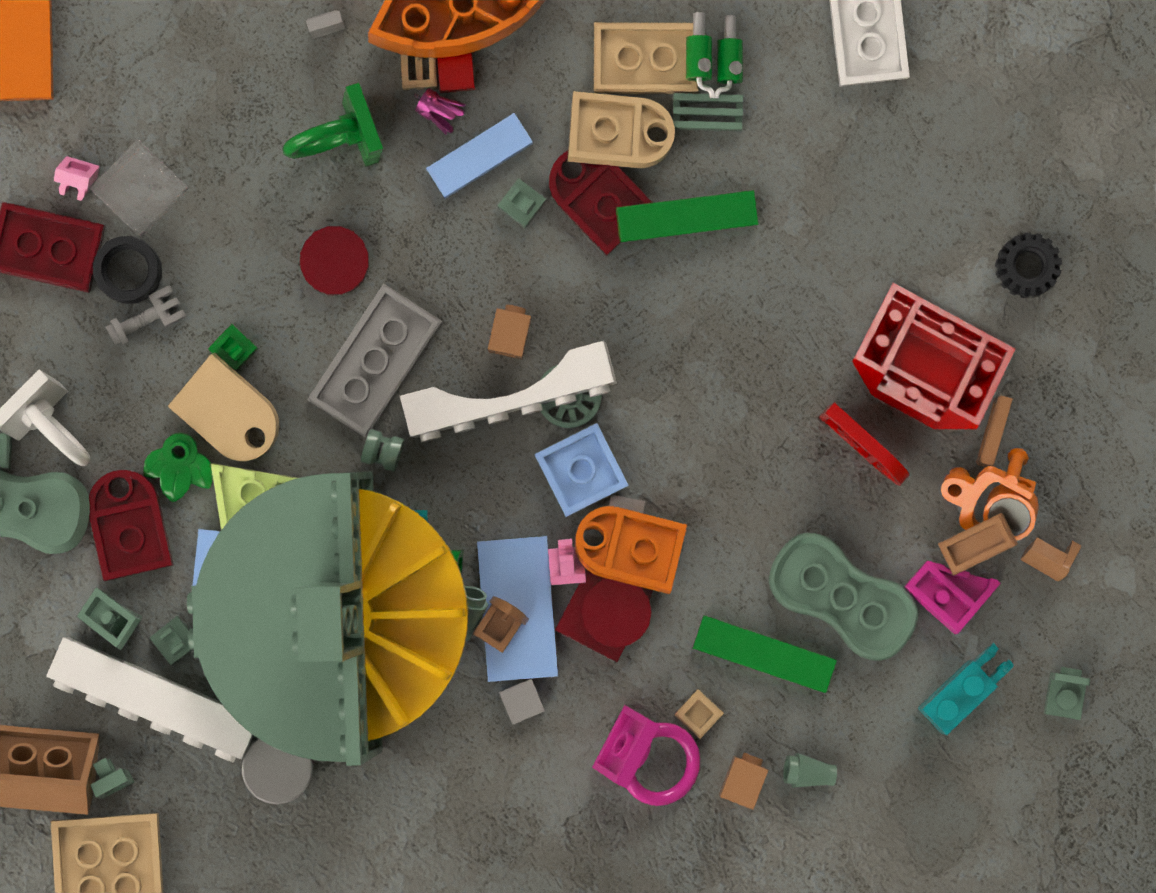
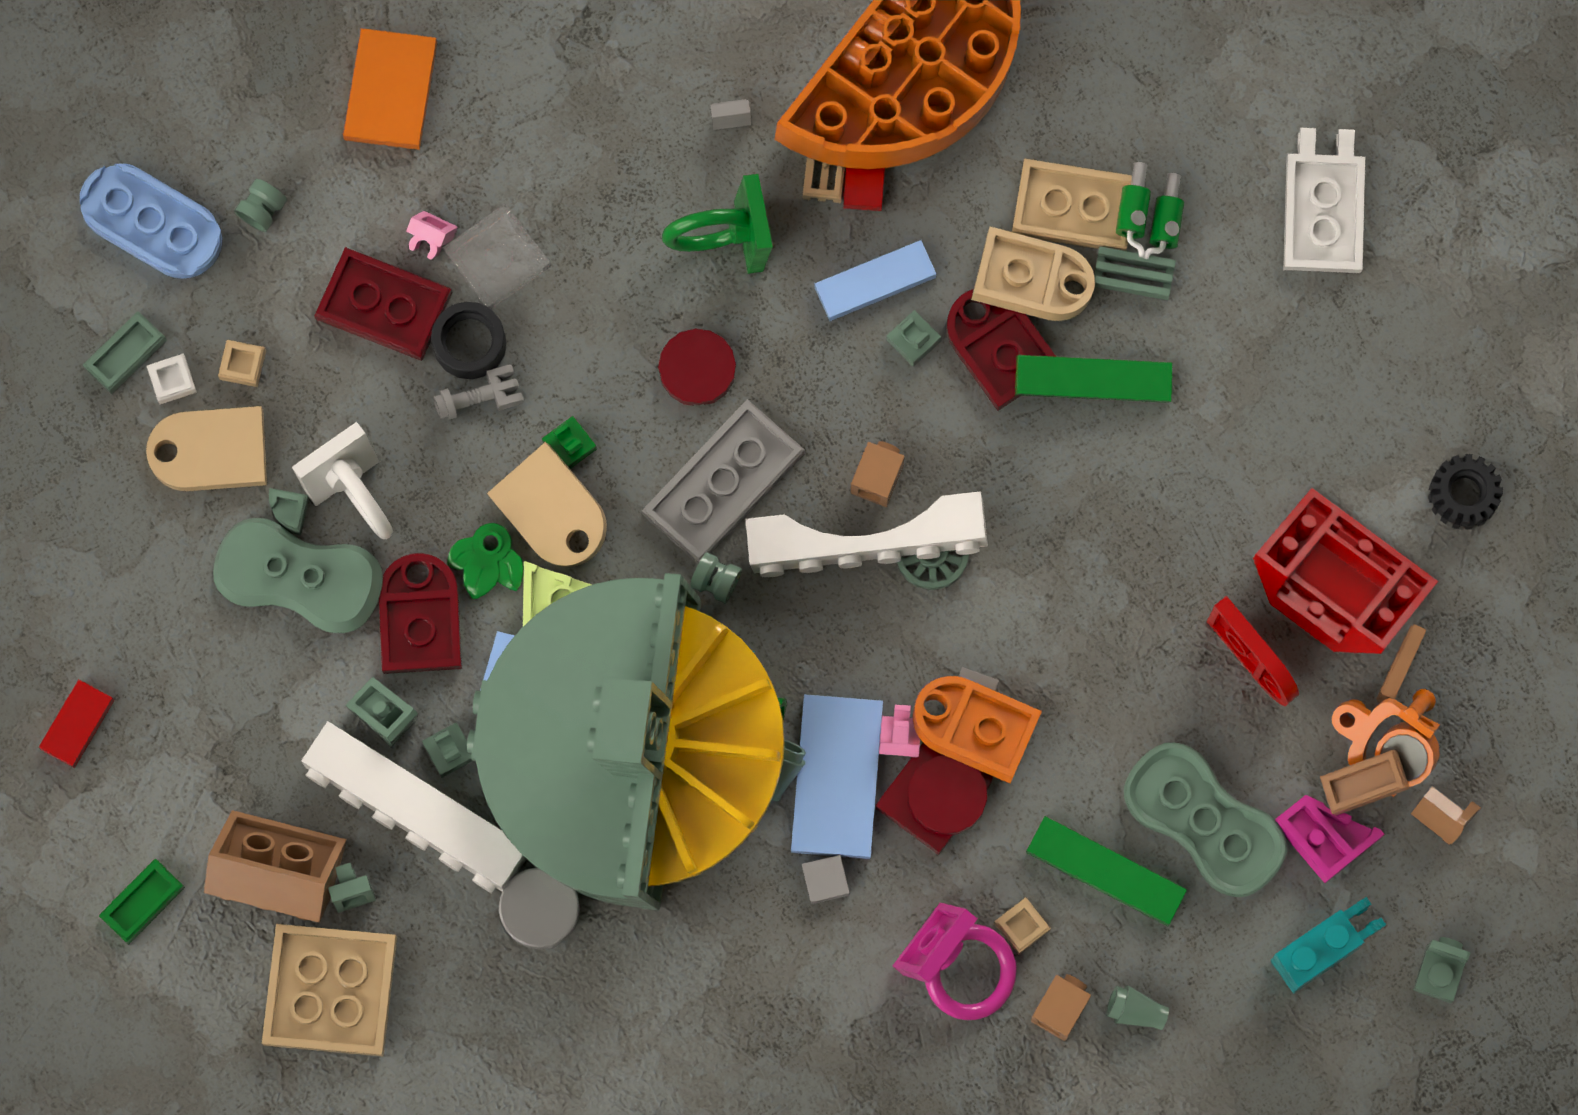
camera: 10 degrees right, 10 degrees down
(434, 107) = (831, 215): flat silver piece -> none
(500, 623) = (816, 786): medium nougat tile -> none
(581, 470) = (933, 635): light blue plate -> none

